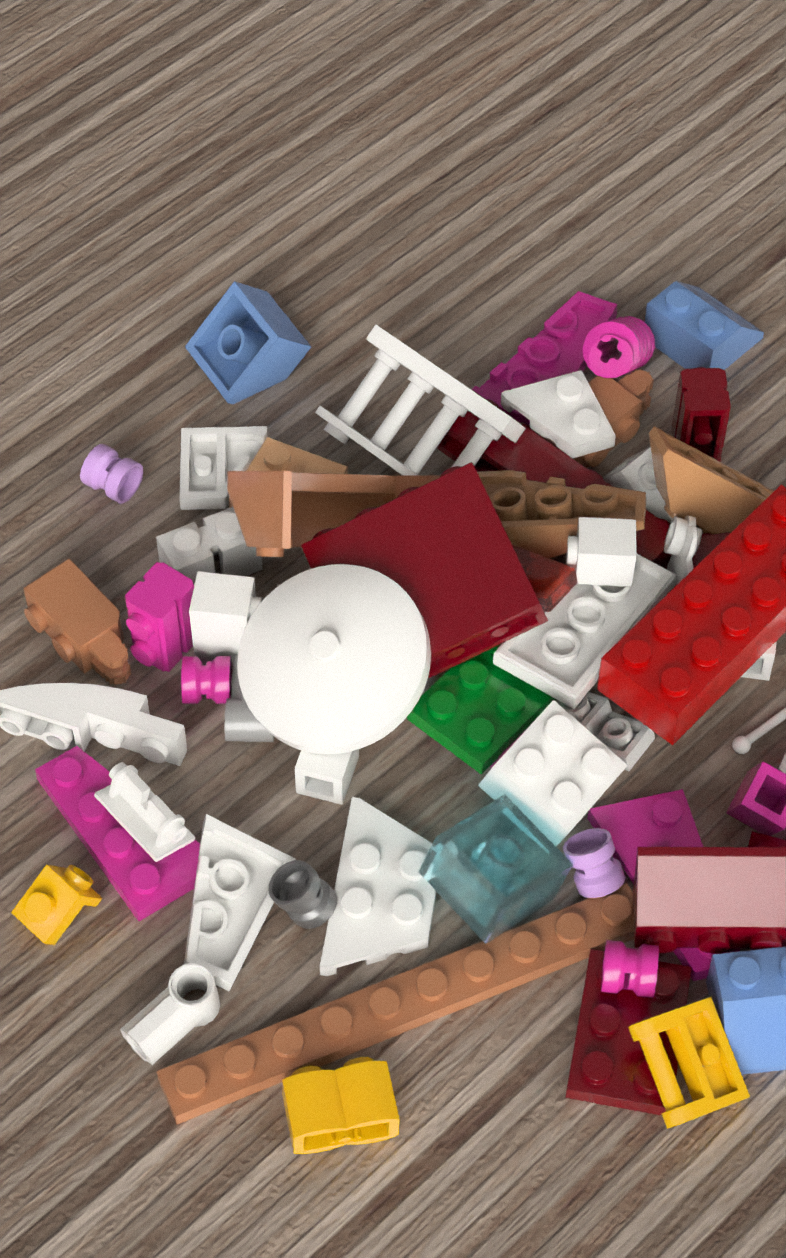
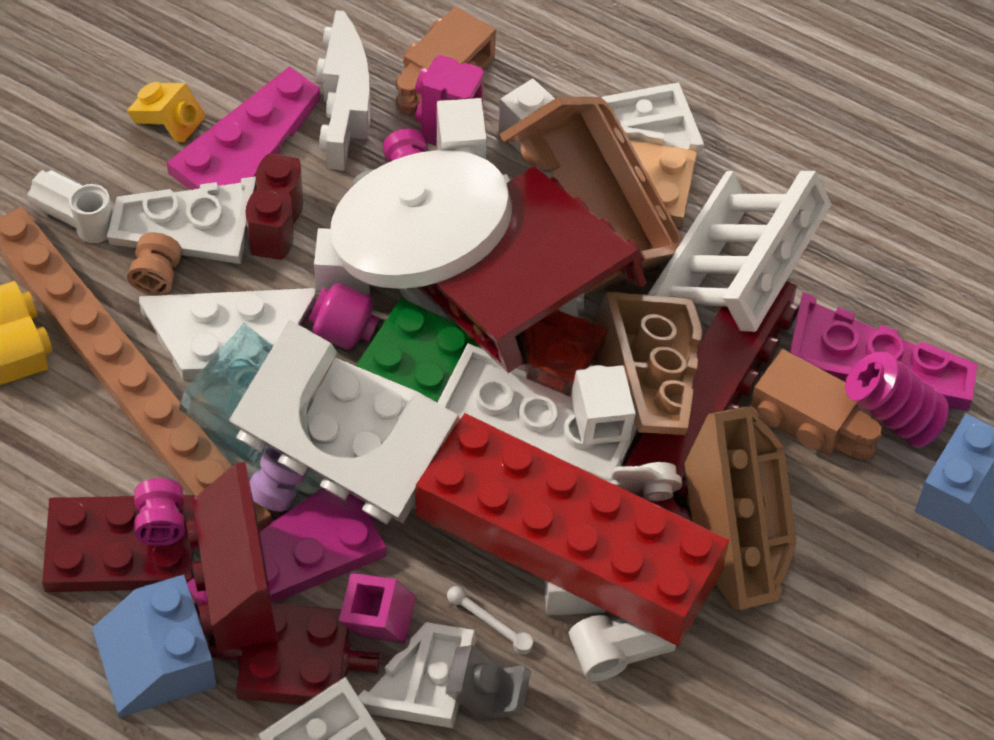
camera: 75 degrees right, 0 degrees up
(108, 472) = (611, 47): lavender wheel -> none
(143, 813) = (252, 138): white hinge -> none
(247, 343) = (803, 113): medium blue slope -> none
(248, 807) = (274, 206): none -> dark red brick
(282, 942) = (154, 263): none -> nougat wheel
(302, 894) = (199, 265): flat silver wheel -> none
(400, 774) = (343, 316): none -> dark pink head
(562, 823) = (275, 416): none -> white arch
(563, 412) = (789, 362): white wing -> none
(702, 410) = (835, 485): dark red brick -> none
(702, 1057) = (90, 592): yellow plate -> none

